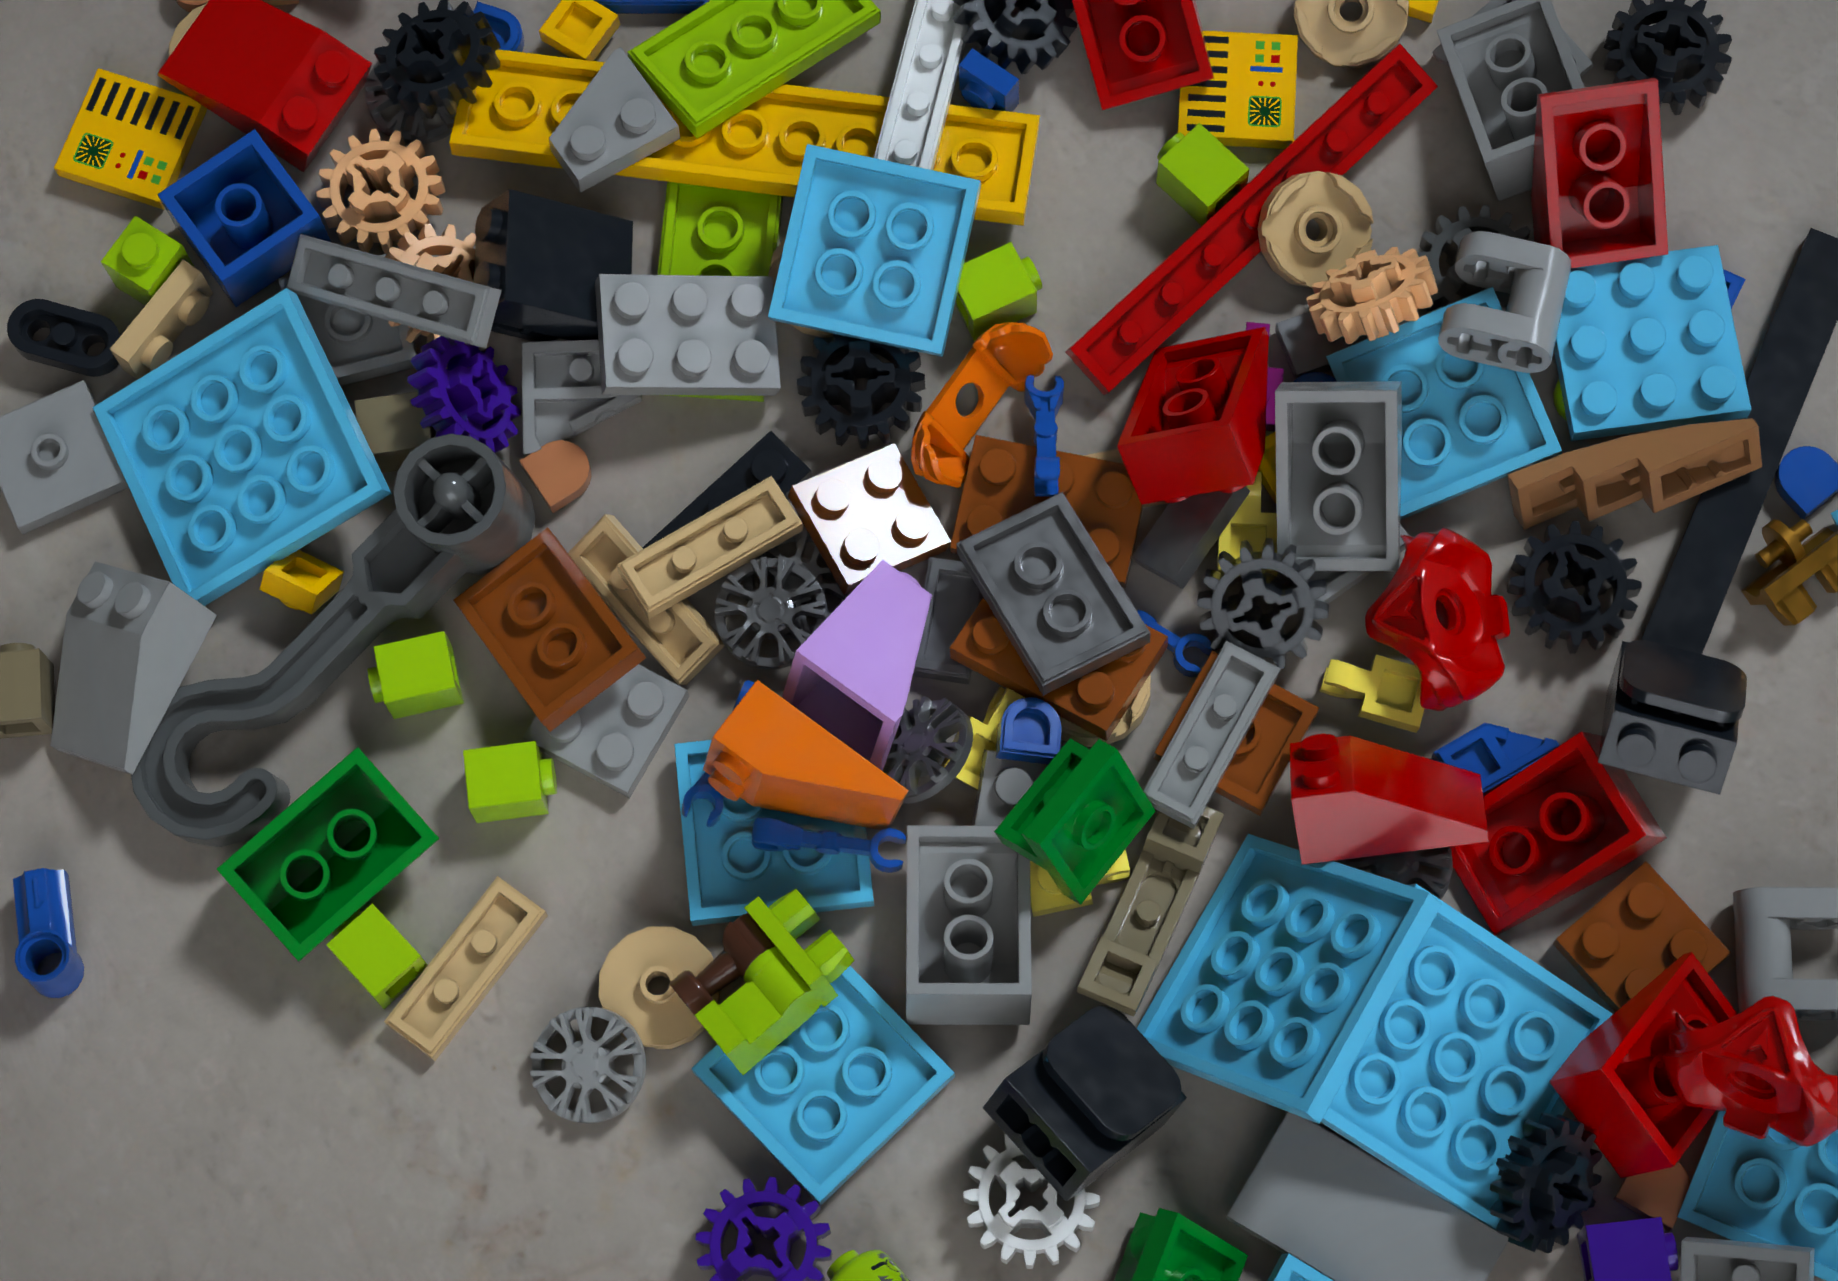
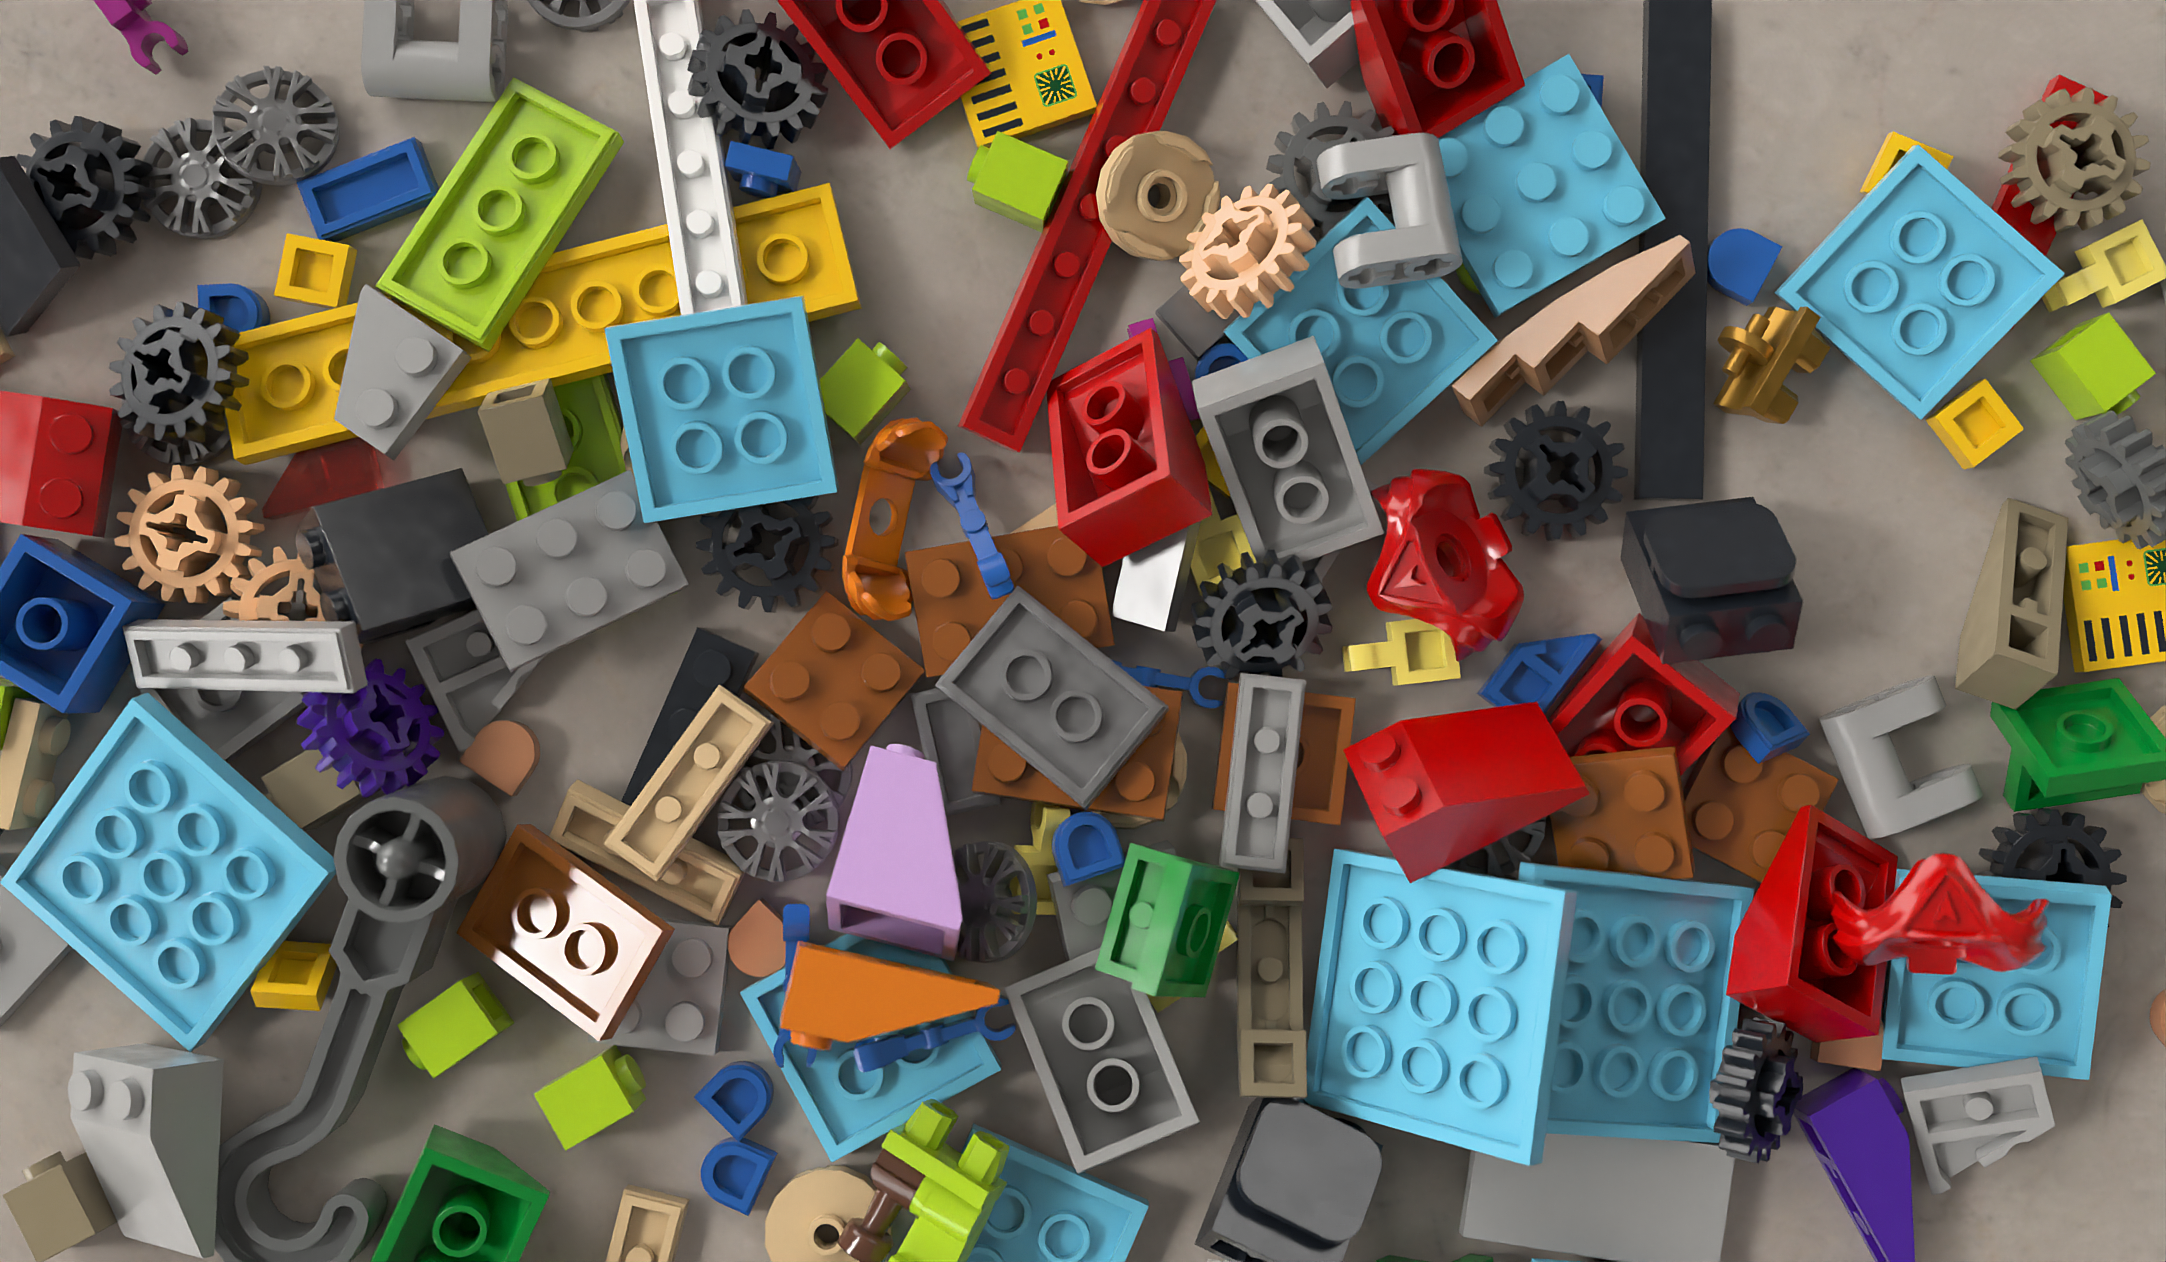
camera: 30 degrees left, 15 degrees up
(500, 177) = (324, 477): none -> clear red tile
(601, 904) = (736, 1172): none -> blue tile
(631, 840) = (738, 1097): none -> blue tile
(701, 212) = (526, 433): none -> dark tan brick
(705, 710) = (757, 941): none -> nougat tile
(1521, 893) = (1629, 819): none -> dark orange plate
(1681, 879) = (1767, 726): none -> blue tile

